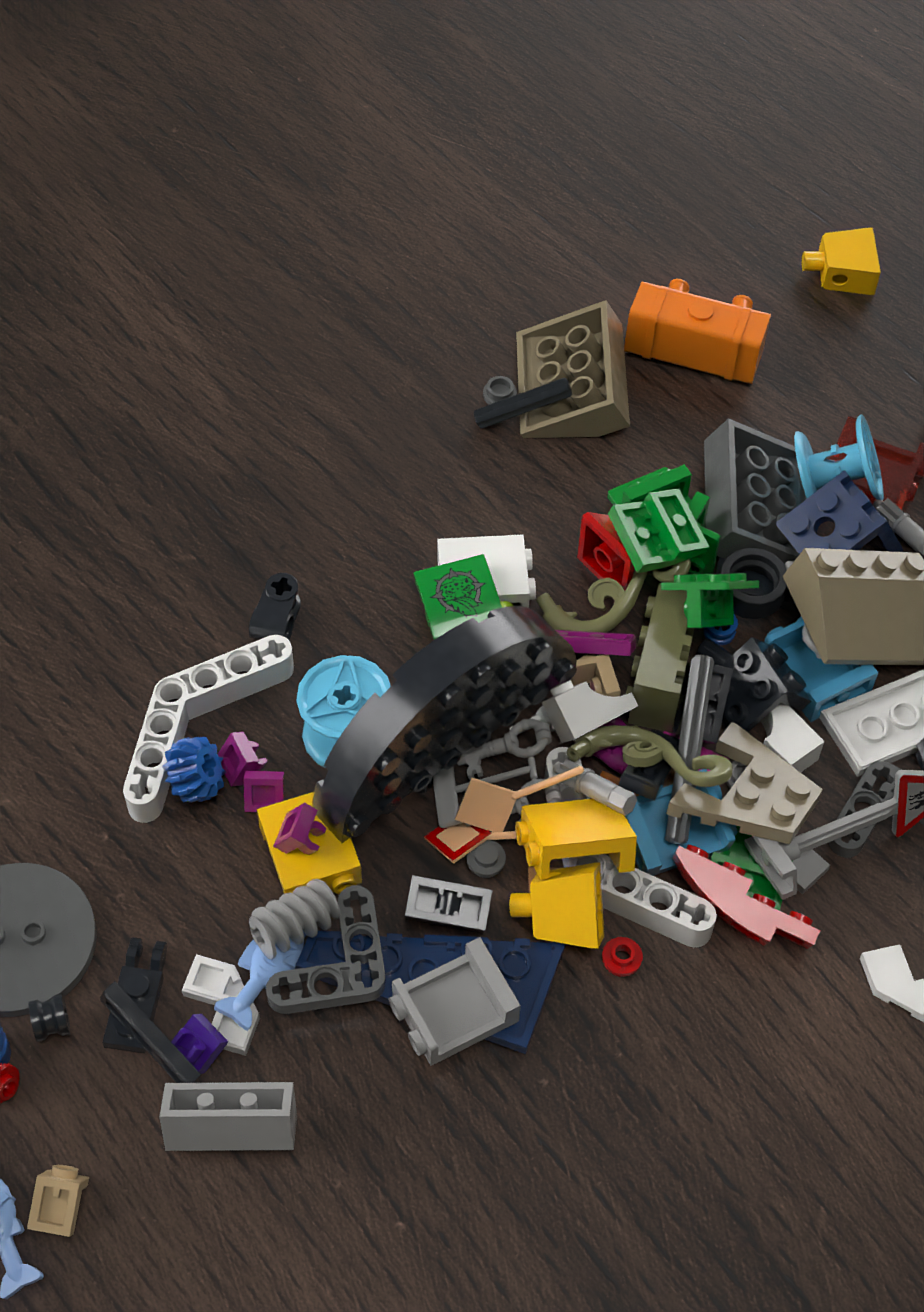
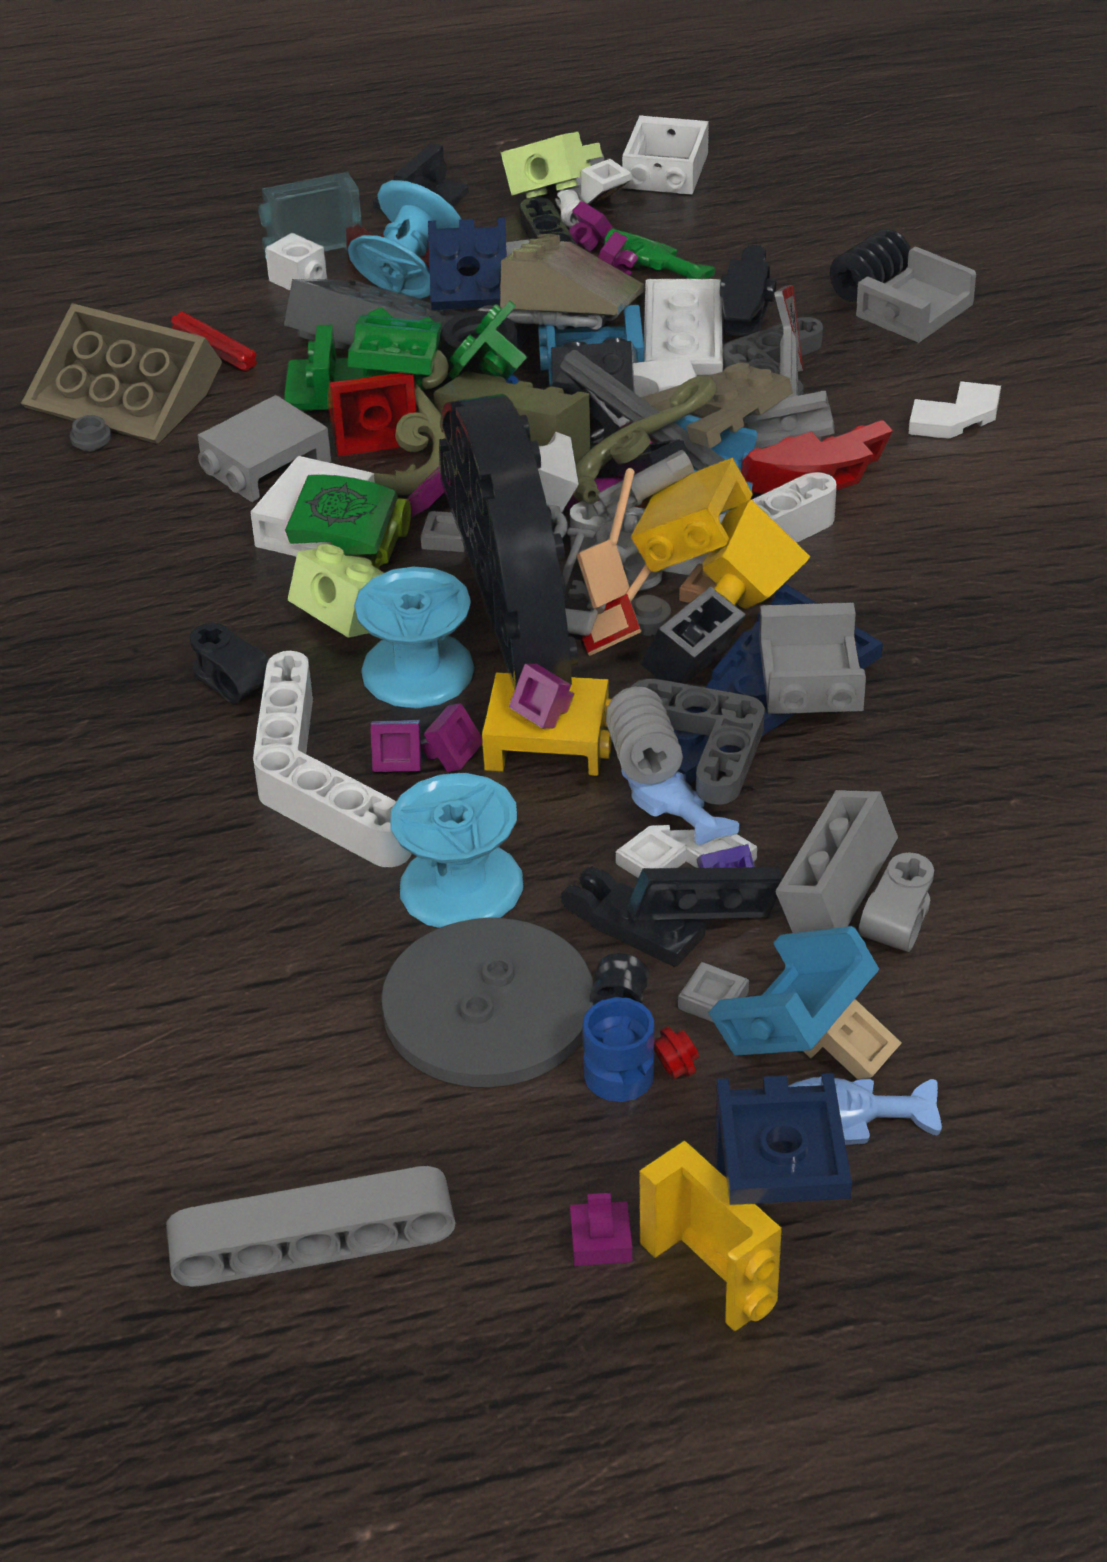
camera: 60 degrees left, 15 degrees down
(66, 1146) = (817, 985): none -> dark azure panel
(80, 1084) = (708, 987): none -> light grey tile
(124, 850) = (456, 833): none -> medium azure piece
(194, 769) = (388, 767): blue gear -> none
(208, 1180) = (899, 902): none -> light grey piece
(393, 635) = (328, 585): none -> yellowish green brick
(523, 403) = (128, 413): black axle -> none
(539, 503) = (259, 443): none -> light grey panel
(619, 966) = (822, 564): red plate -> none
(664, 406) = (224, 346): none -> red axle
(697, 331) = (162, 273): orange piece -> none
(795, 406) = (294, 259): none -> white brick
(844, 382) = (311, 209): none -> clear light blue panel
(846, 261) = (159, 181): yellow torso -> none

